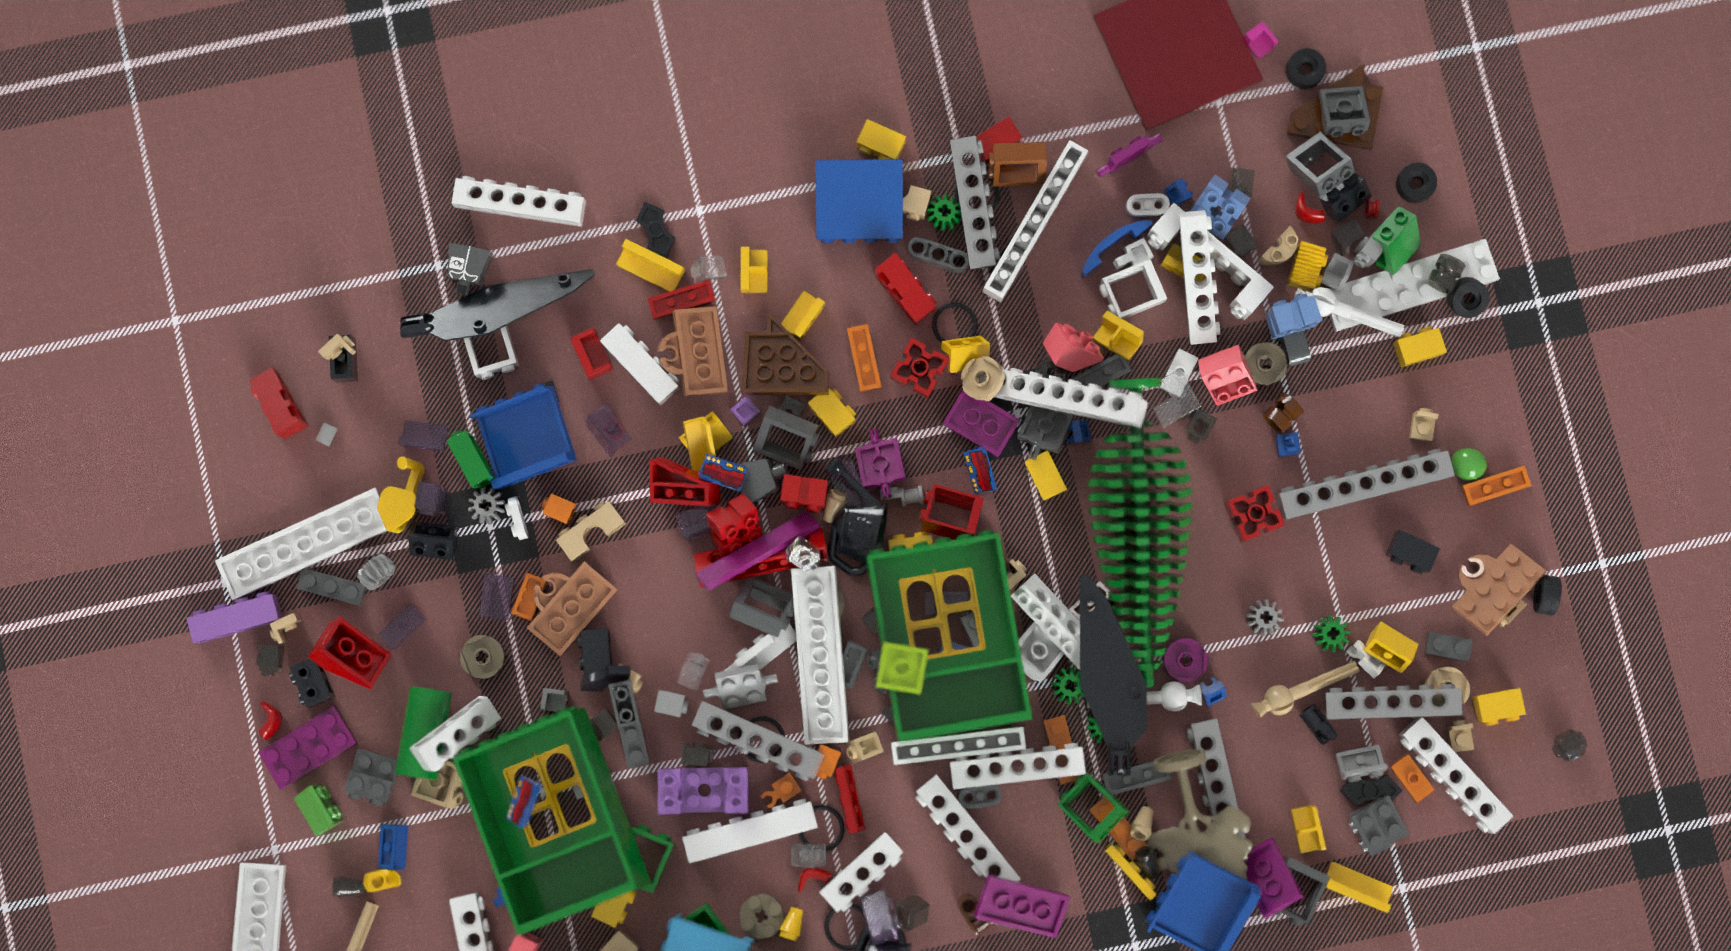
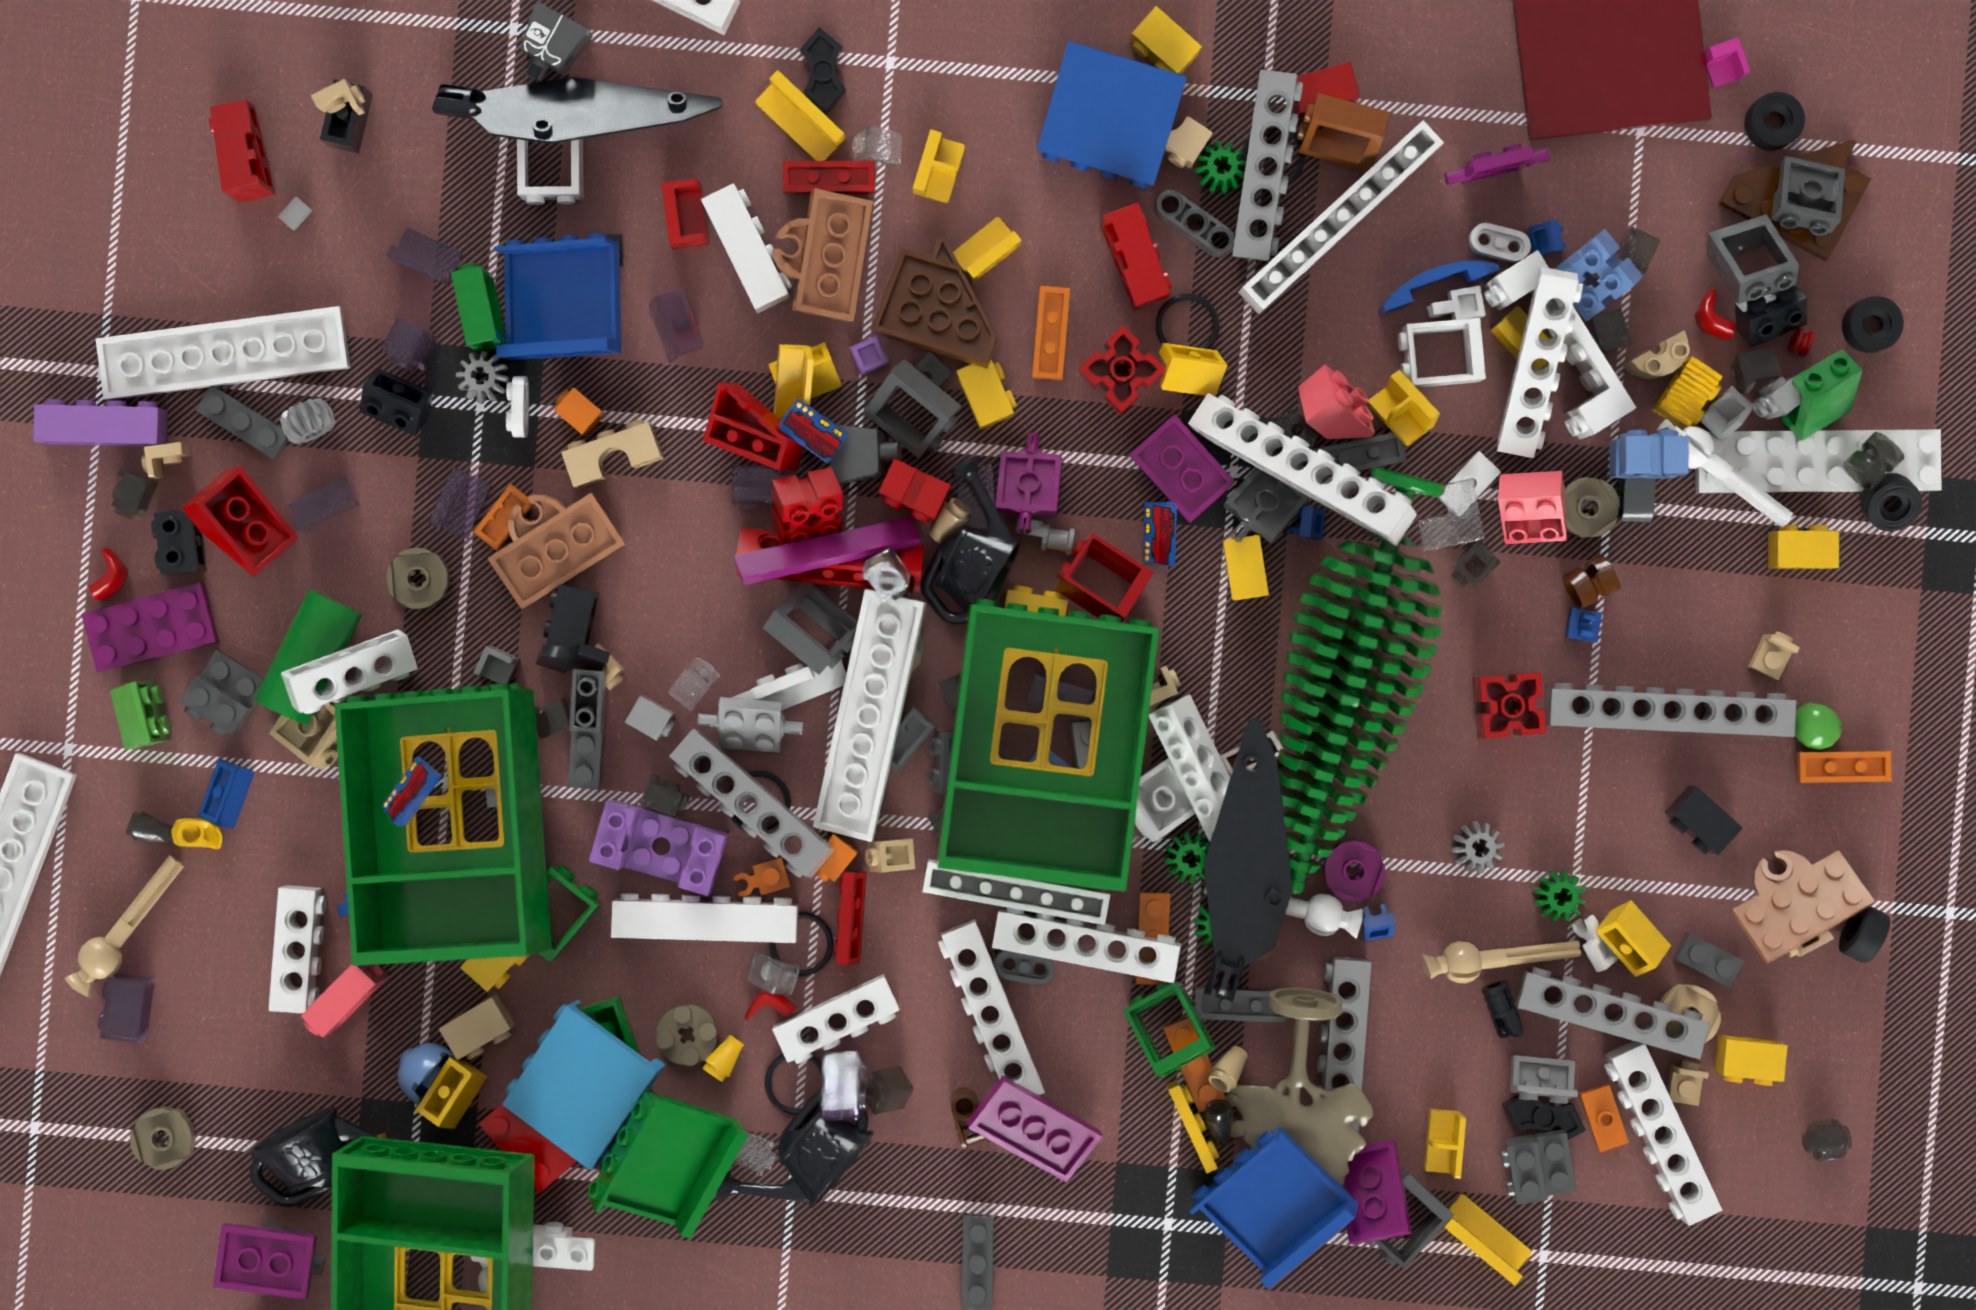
camera: 15 degrees right, 5 degrees up
(397, 504) = (361, 337): yellow piece -> none
(901, 668) = (971, 771): lime plate -> none
(994, 378) = (1213, 422): tan plate -> none

